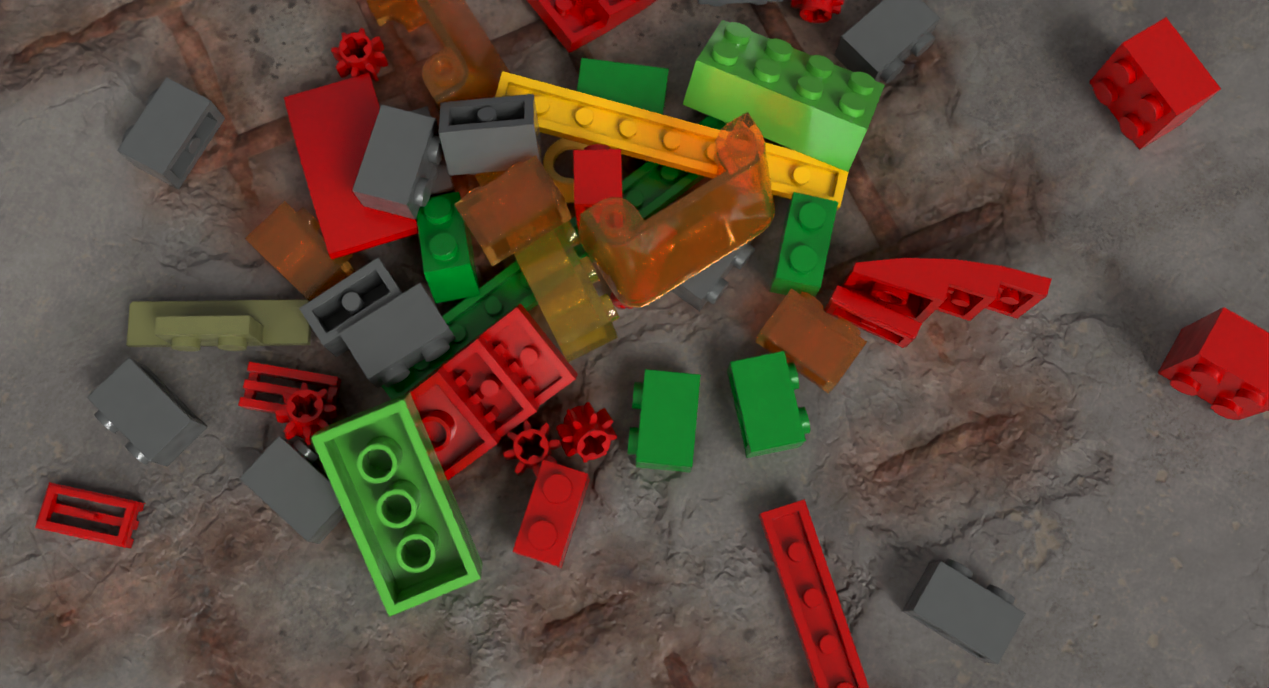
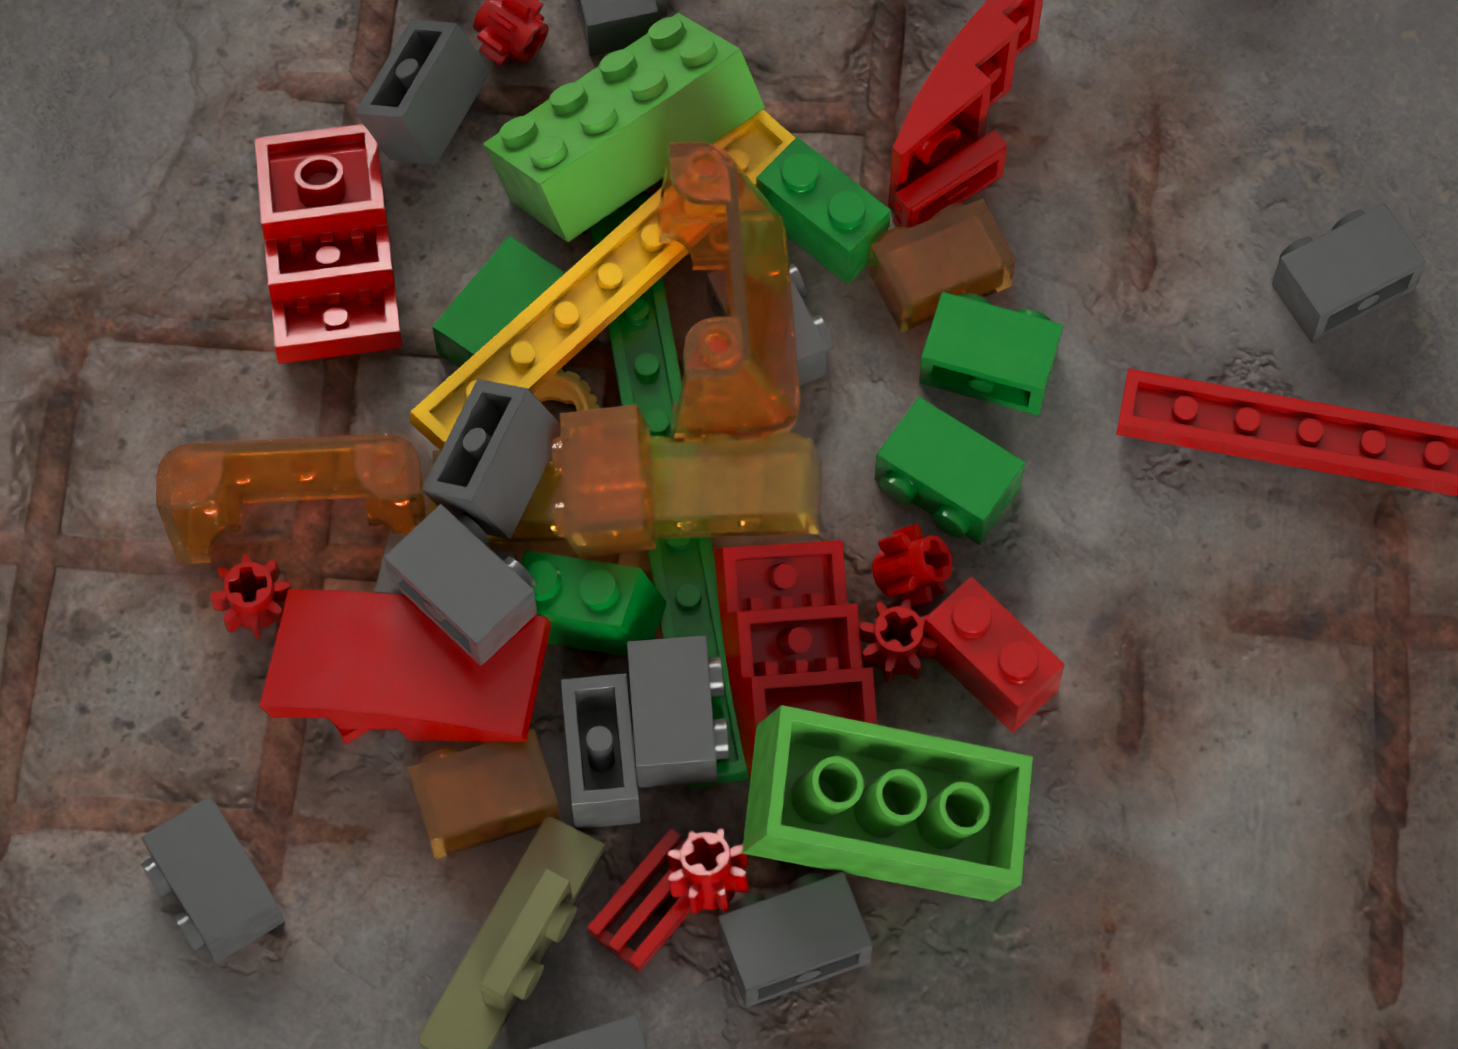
camera: 60 degrees left, 10 degrees down
(596, 176) = (632, 368): red brick -> none

